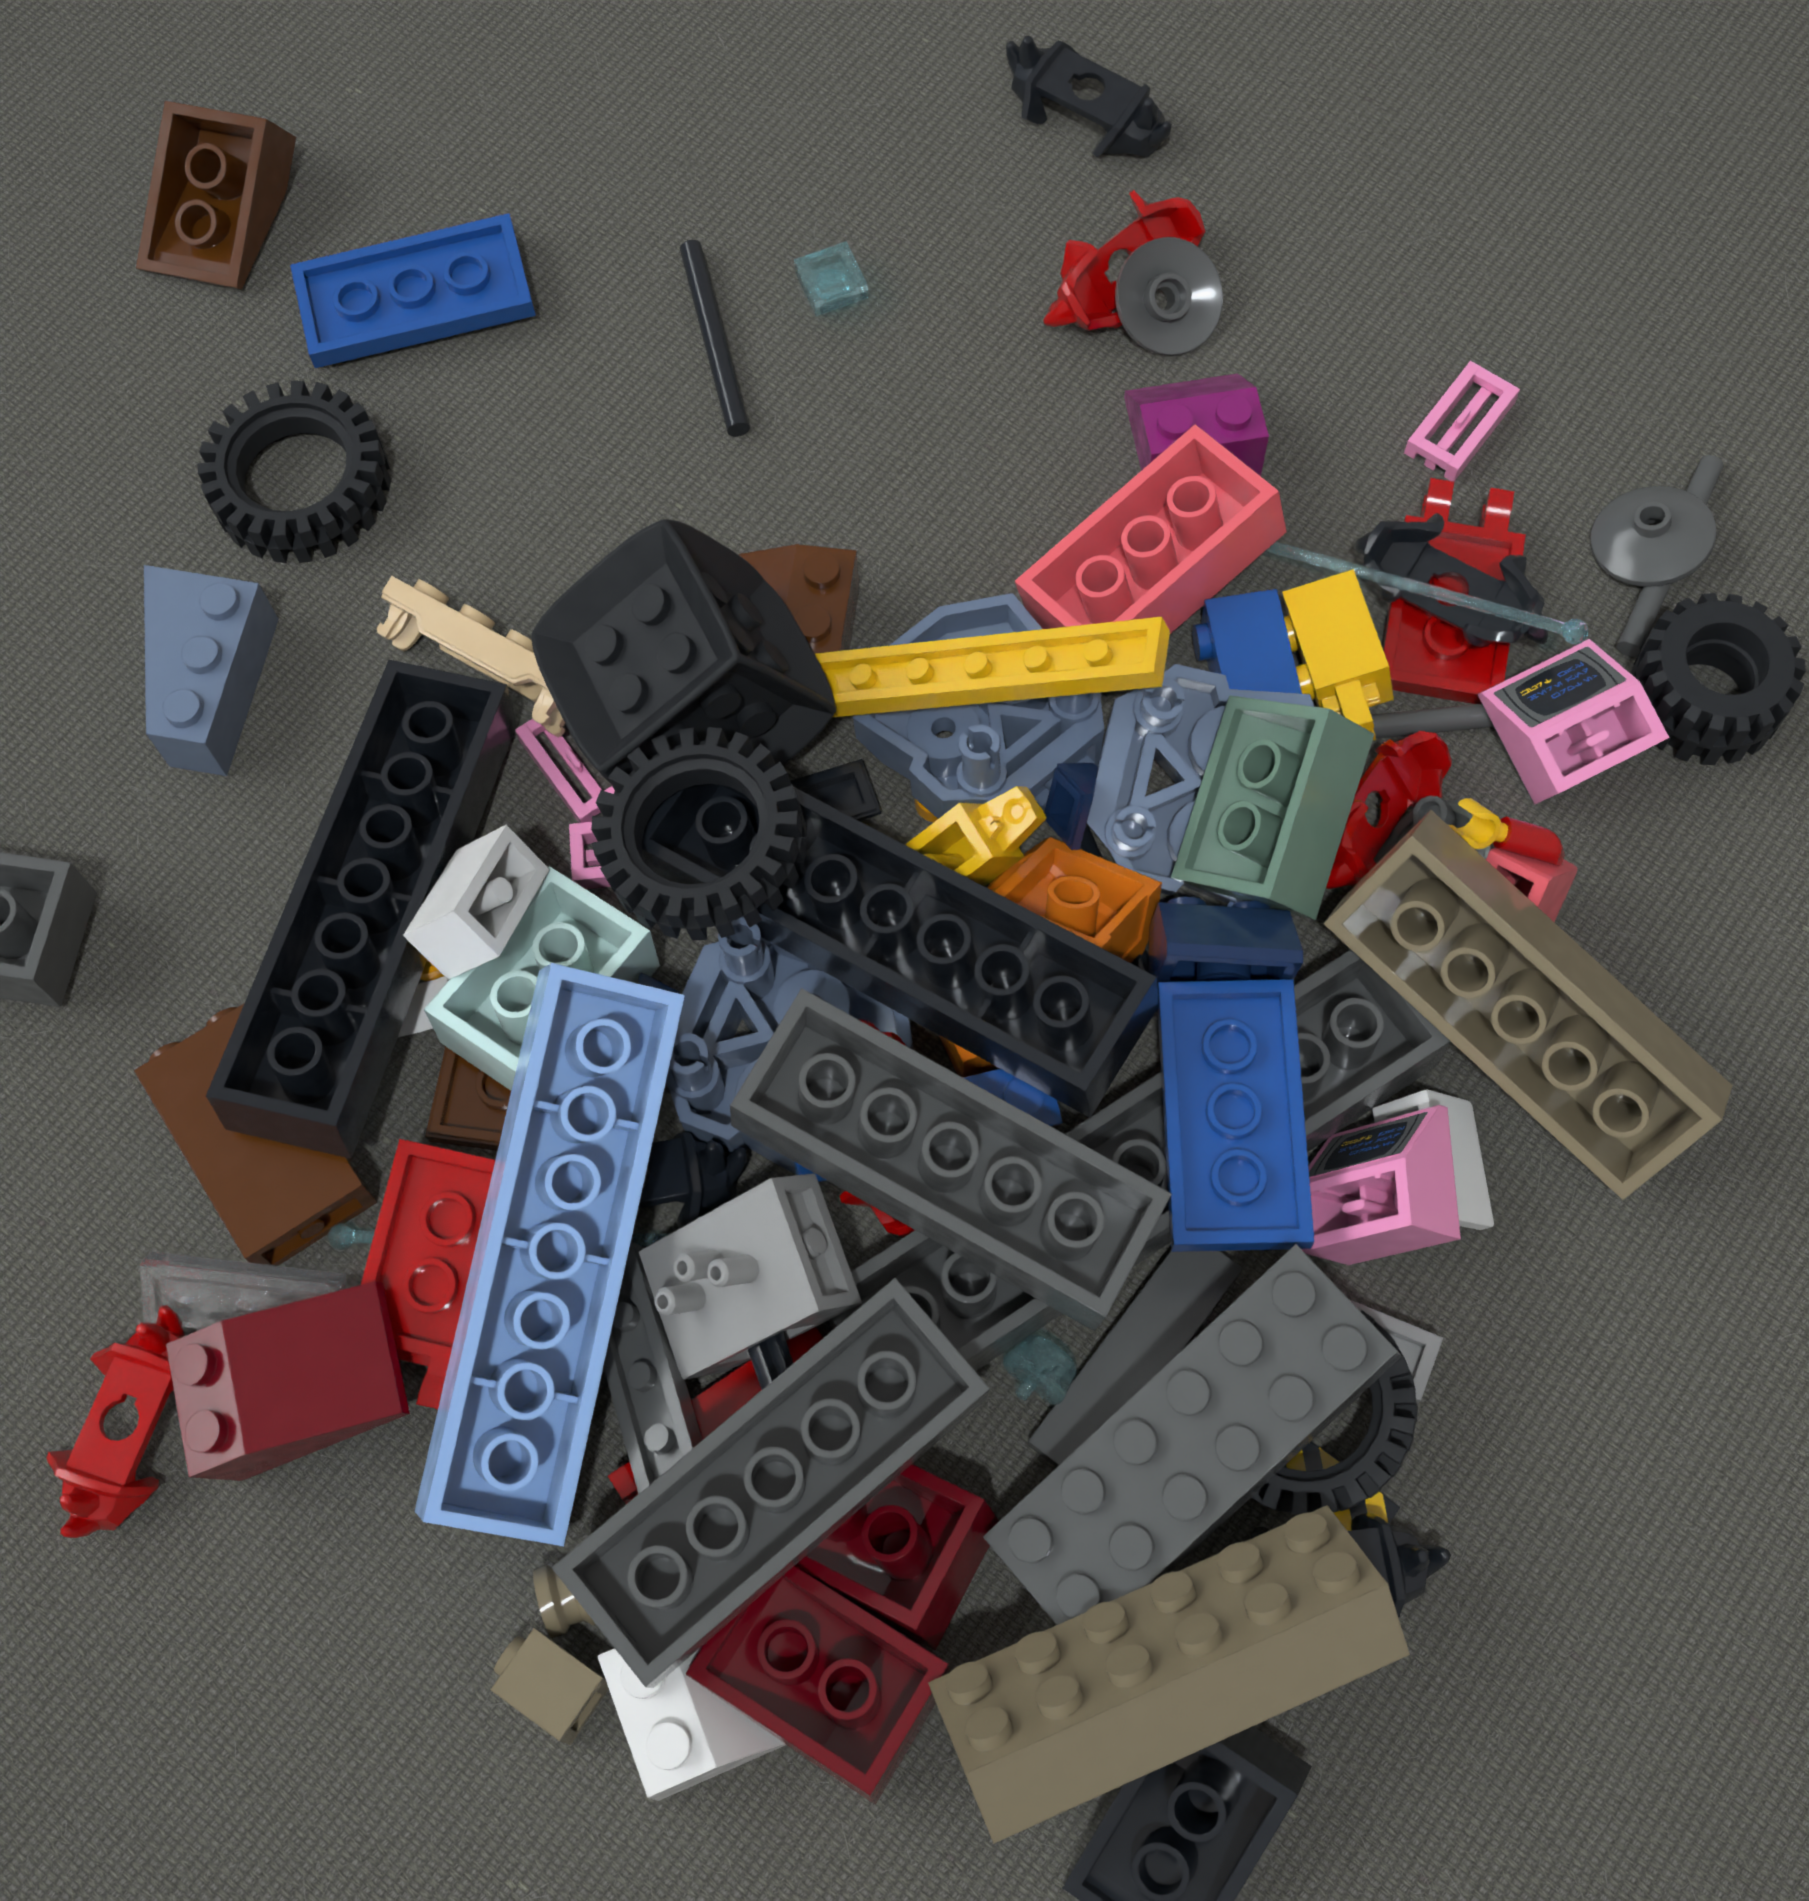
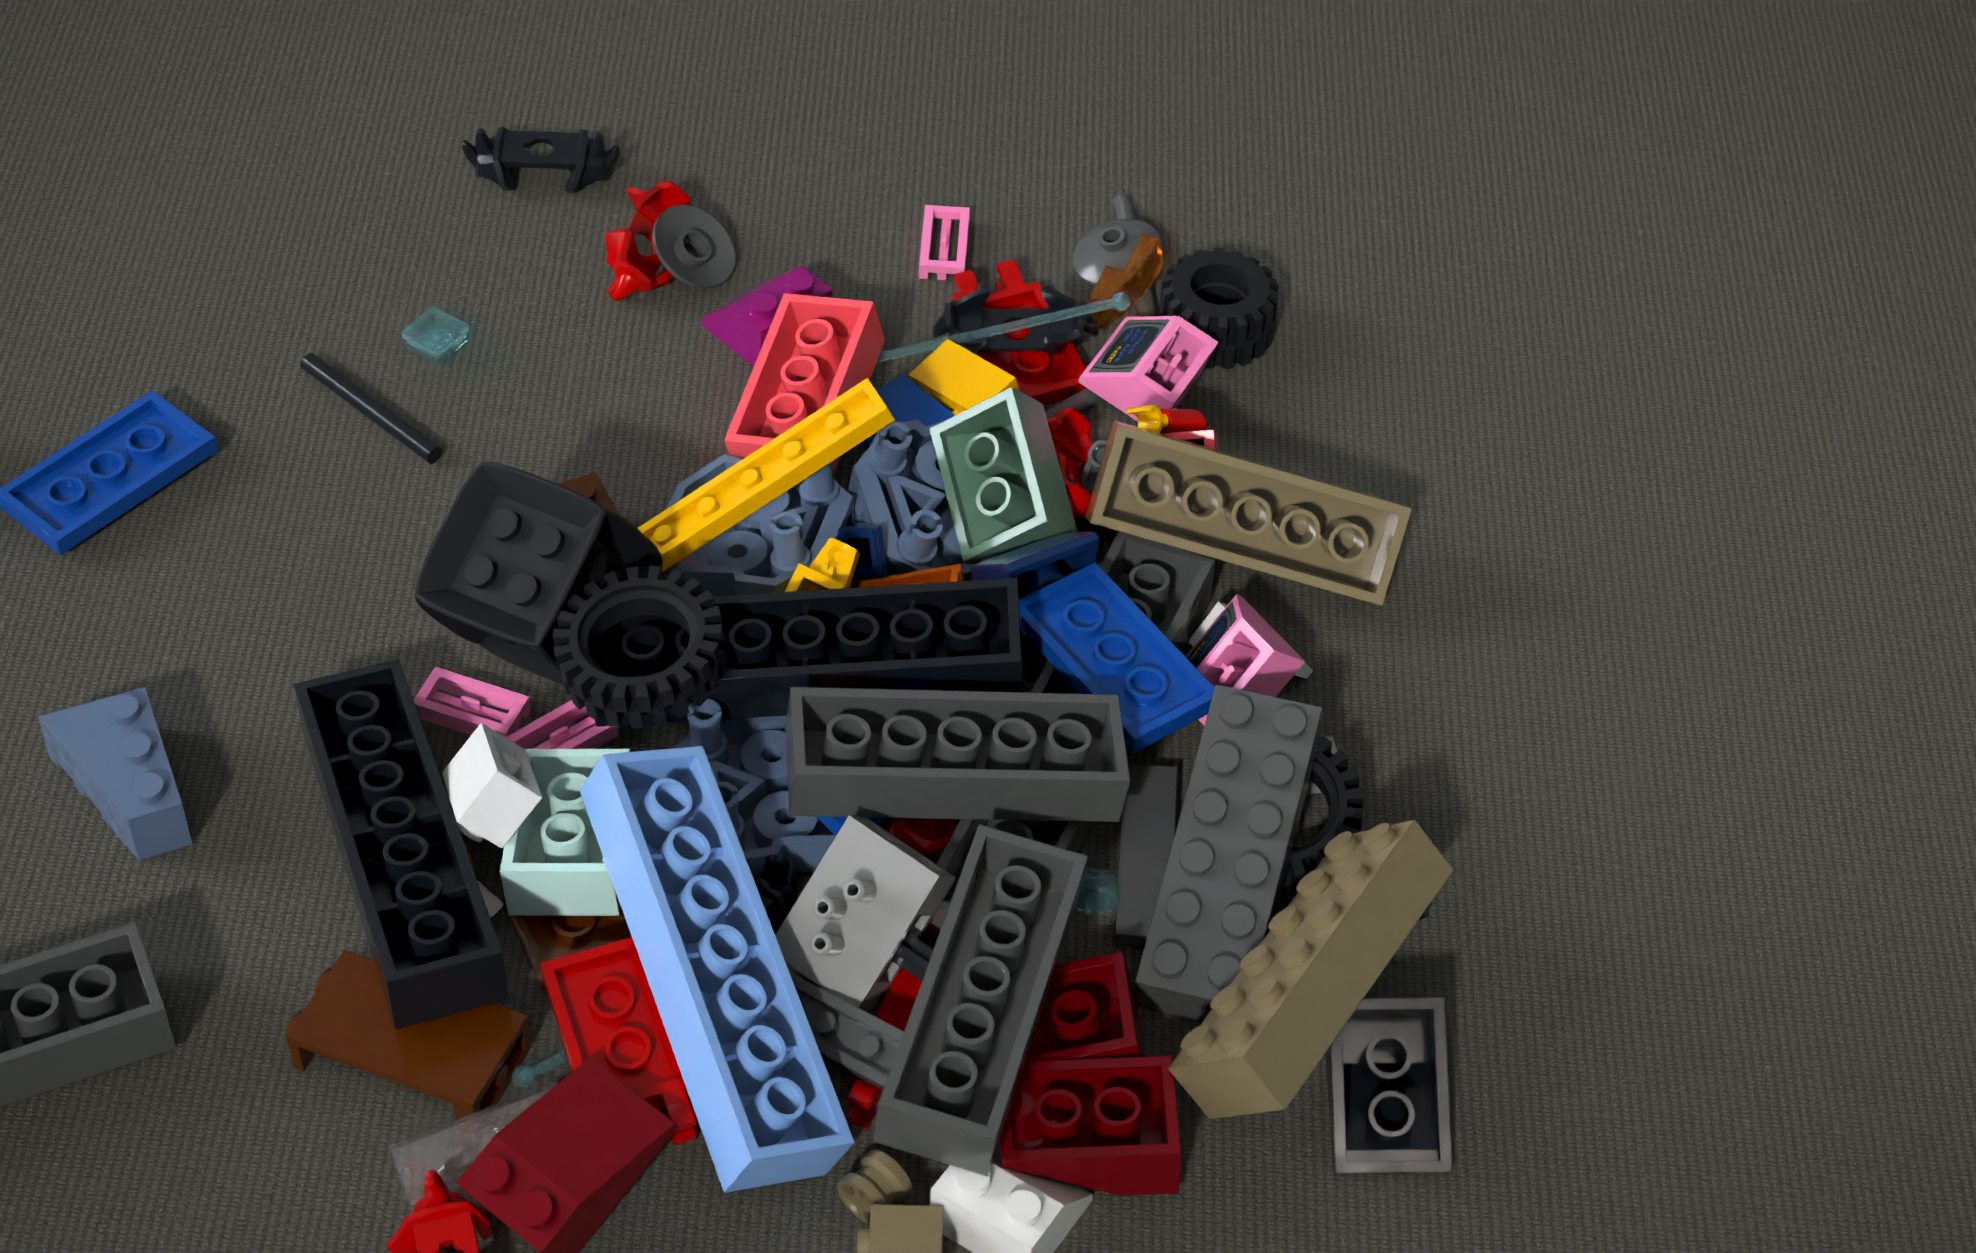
camera: 40 degrees left, 20 degrees down
(273, 419) = (104, 665): black tyre -> none
(469, 639) = (330, 652): tan piece -> none
(1608, 596) = (1133, 280): none -> clear orange slope

